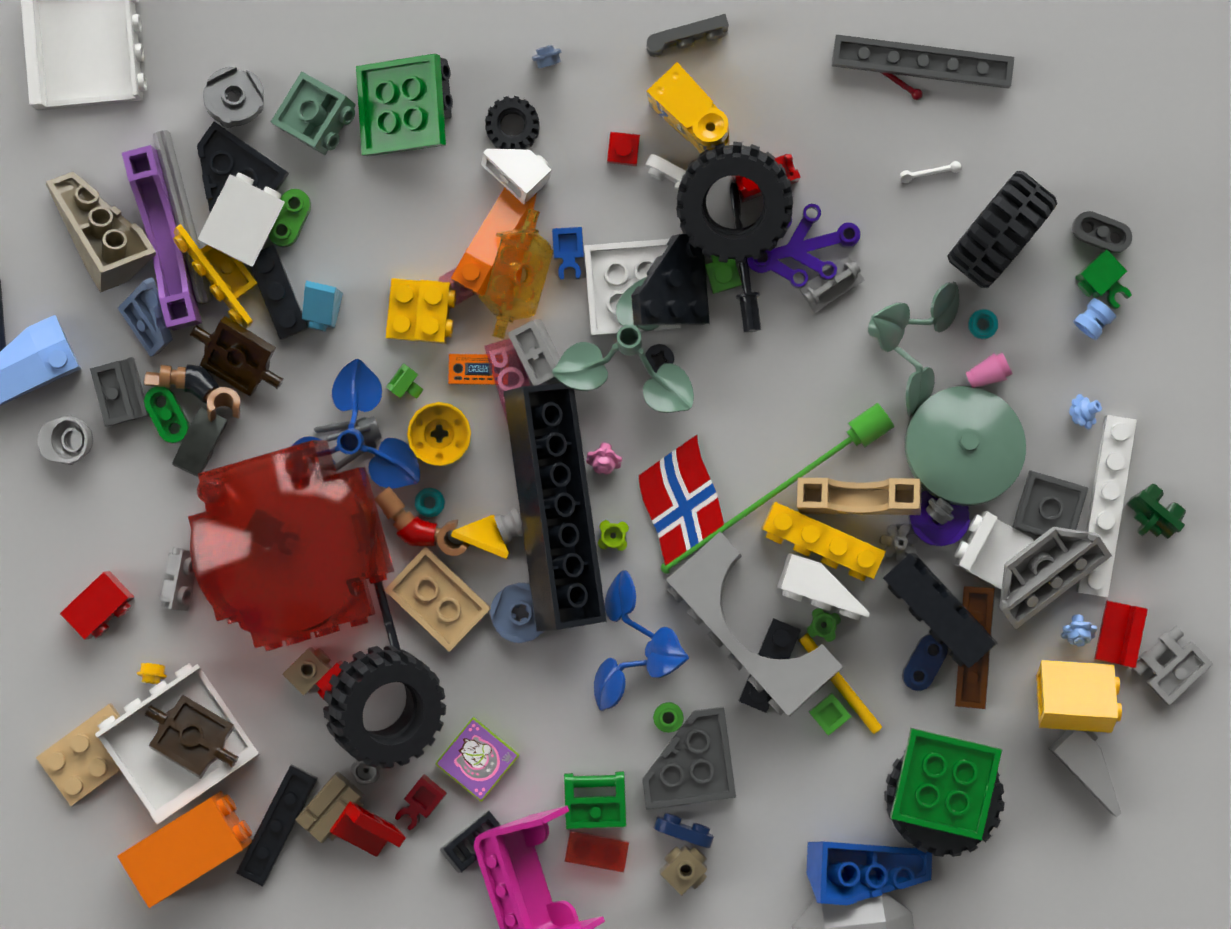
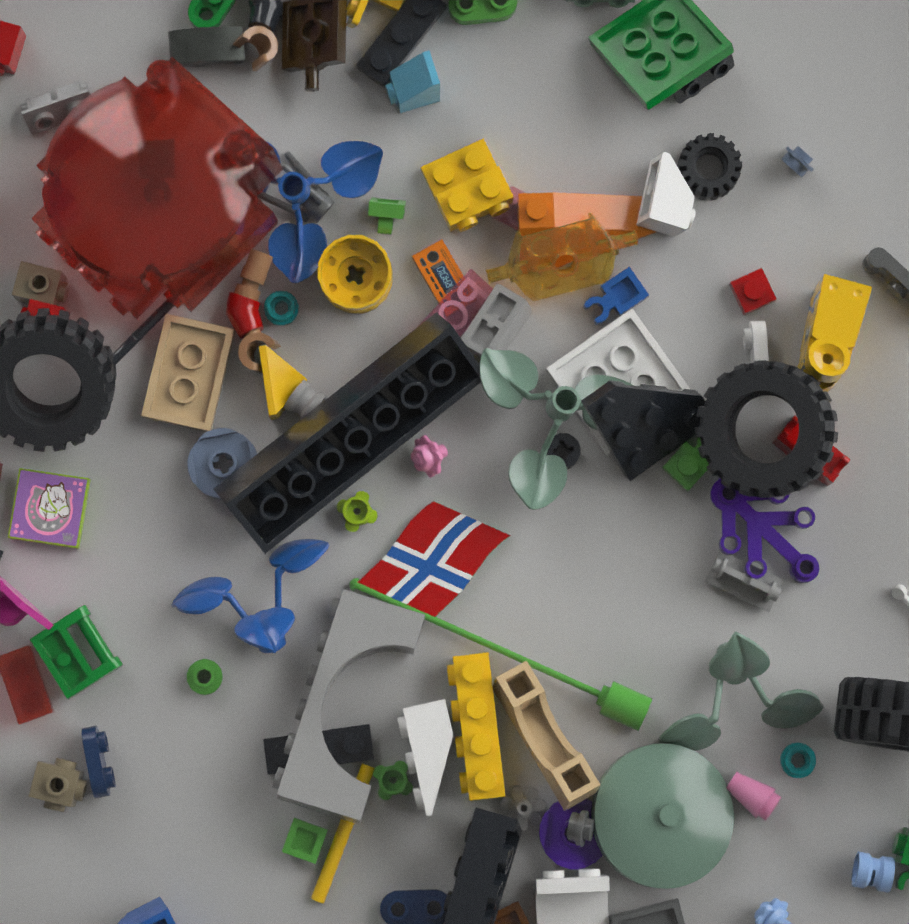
camera: 45 degrees right, 5 degrees down
(693, 764) = (171, 730): dark grey plate -> none
(747, 299) = (678, 504): black piece -> none

